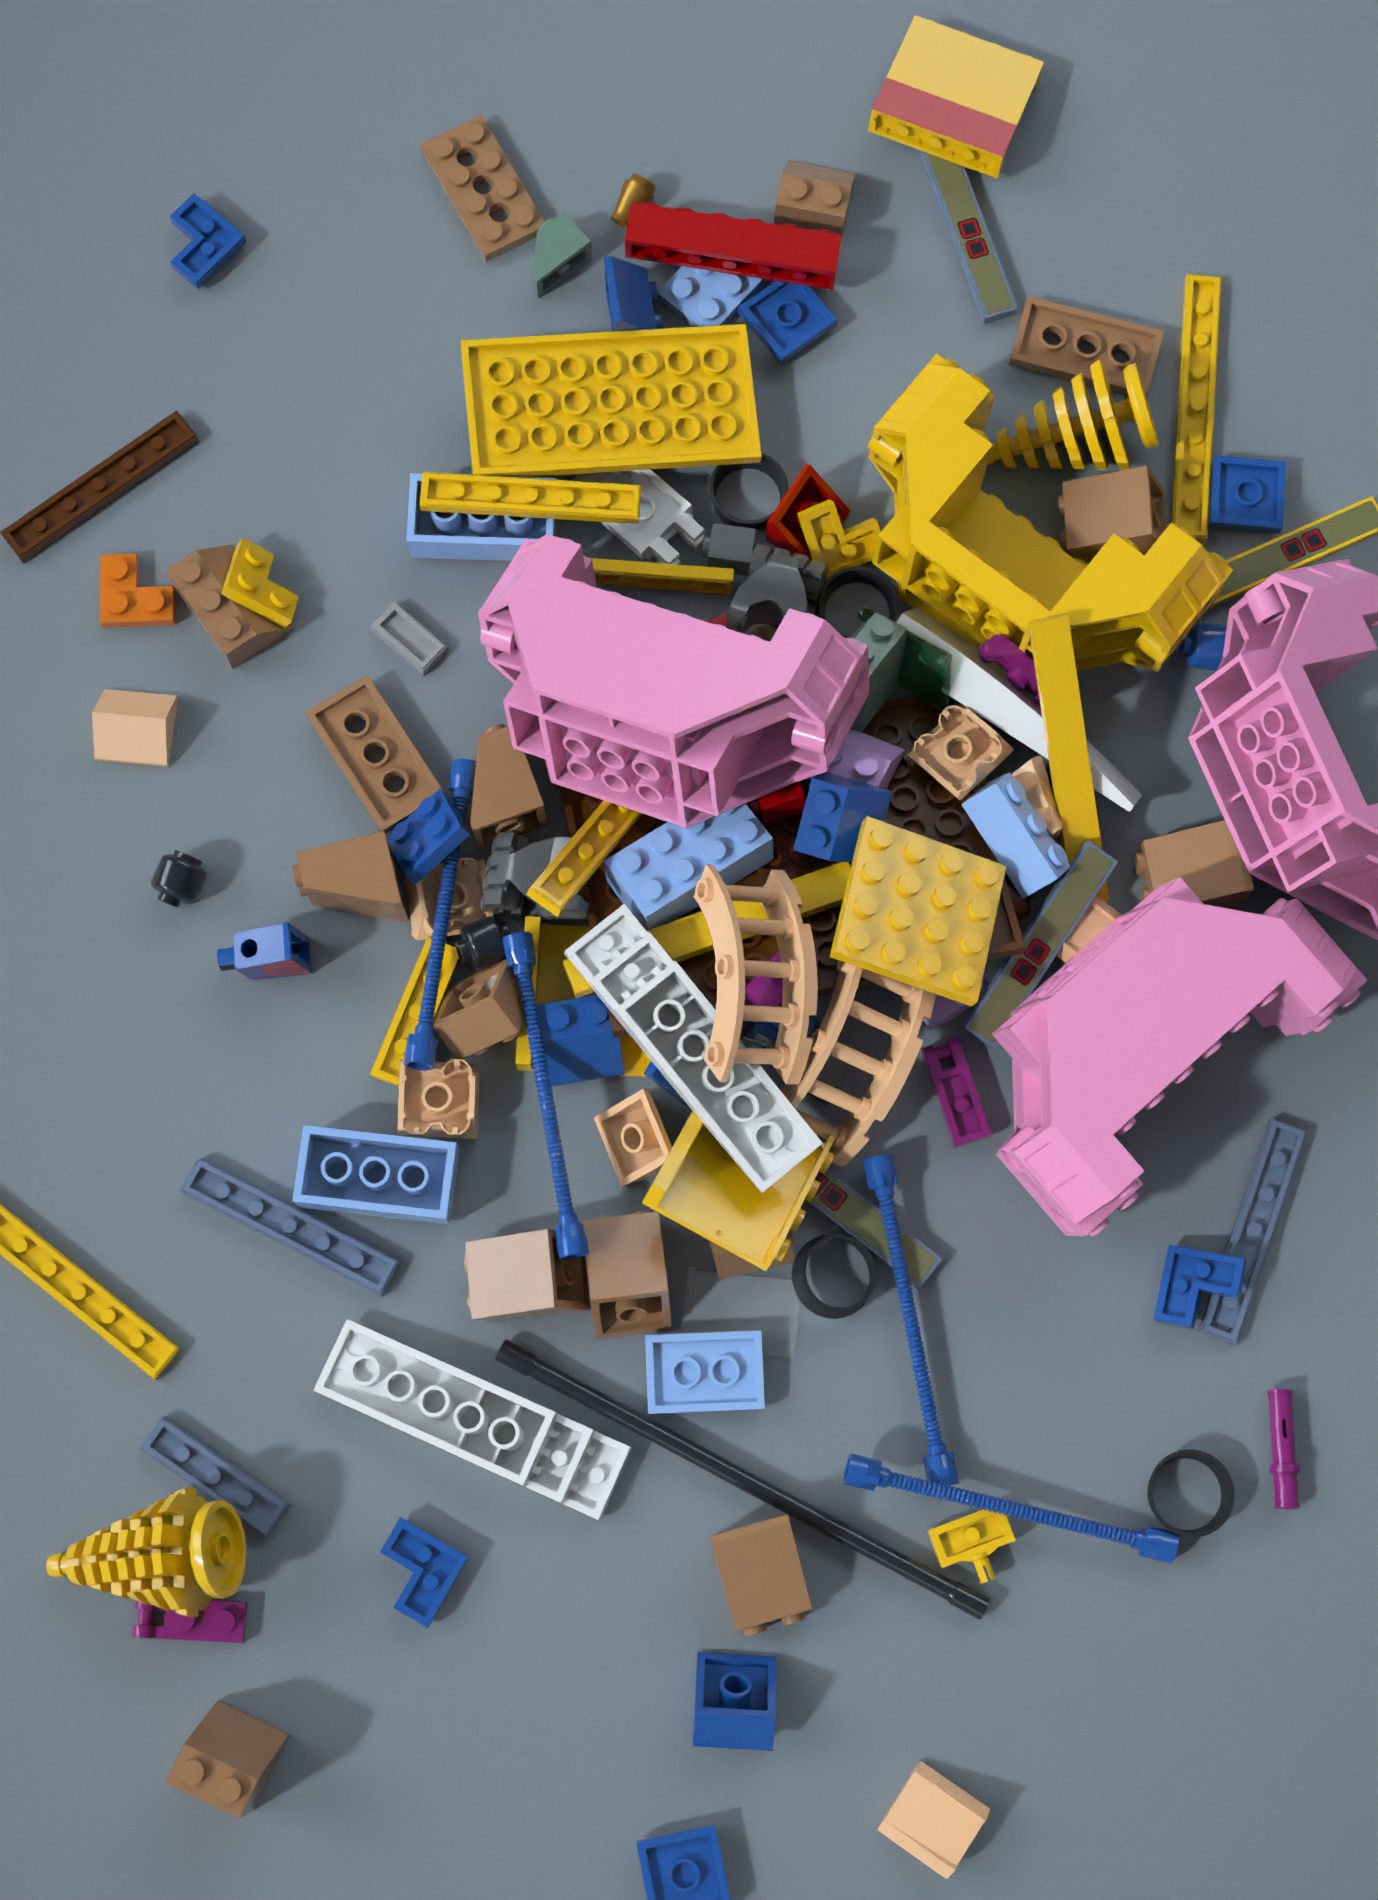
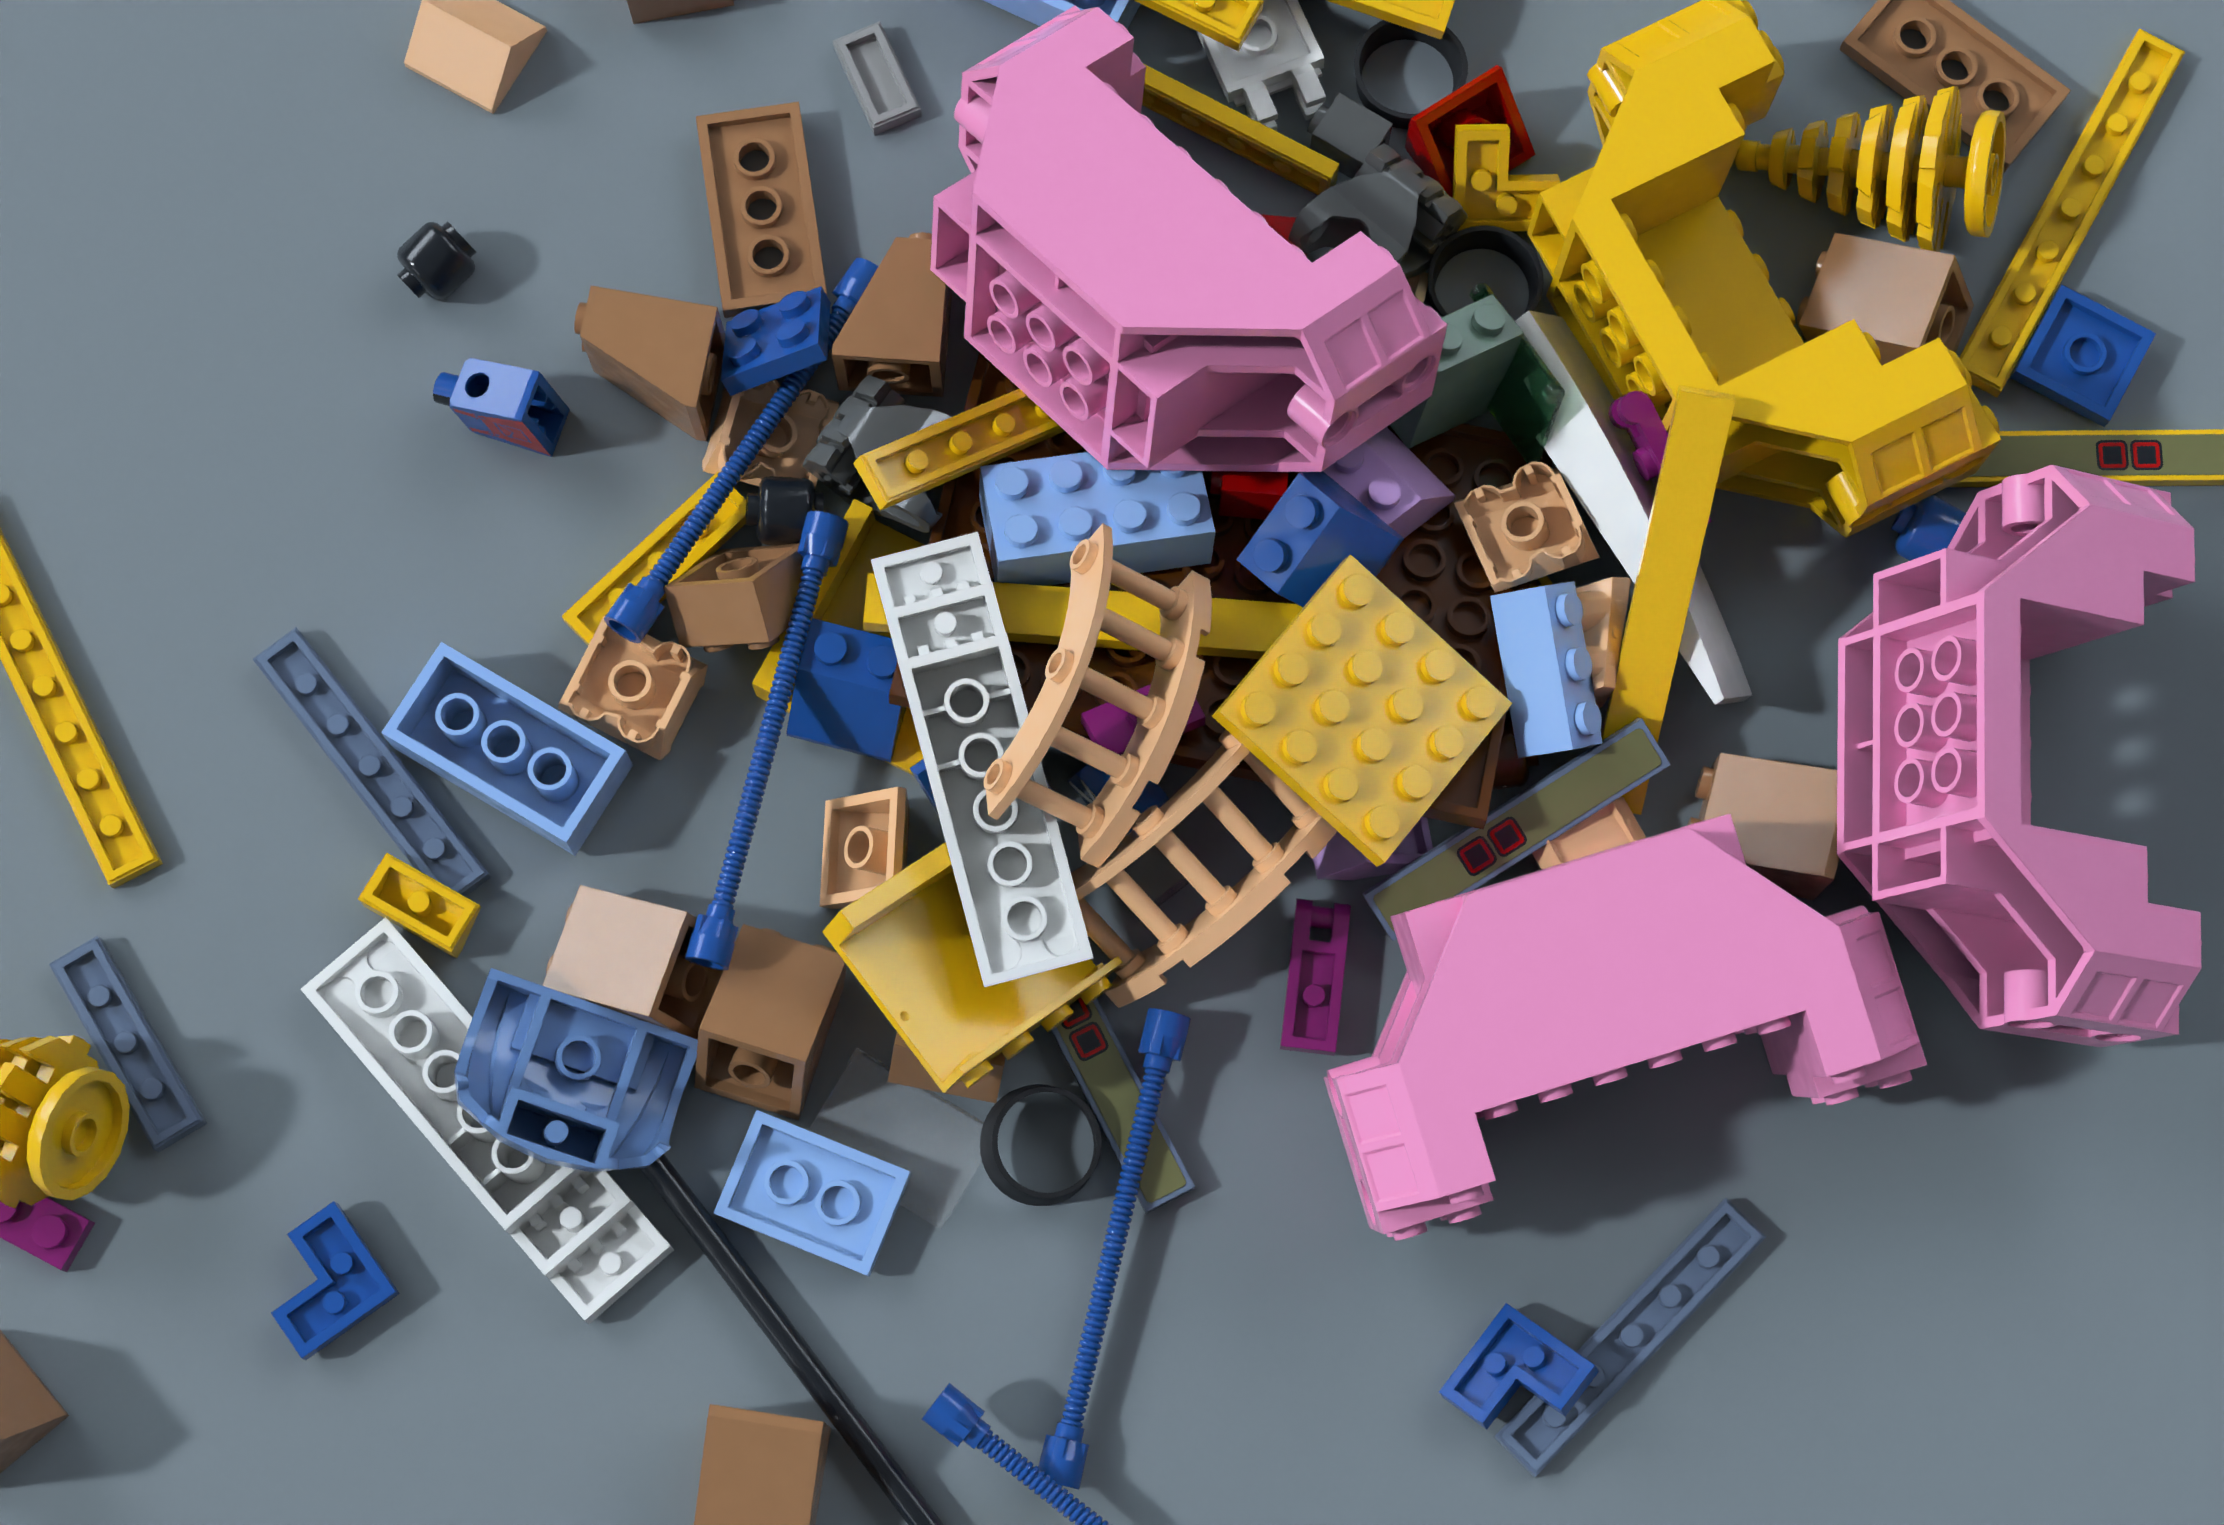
camera: 25 degrees right, 0 degrees up
(365, 1301) = (420, 905): none -> yellow slope
(519, 1368) = (570, 1077): none -> medium blue piece

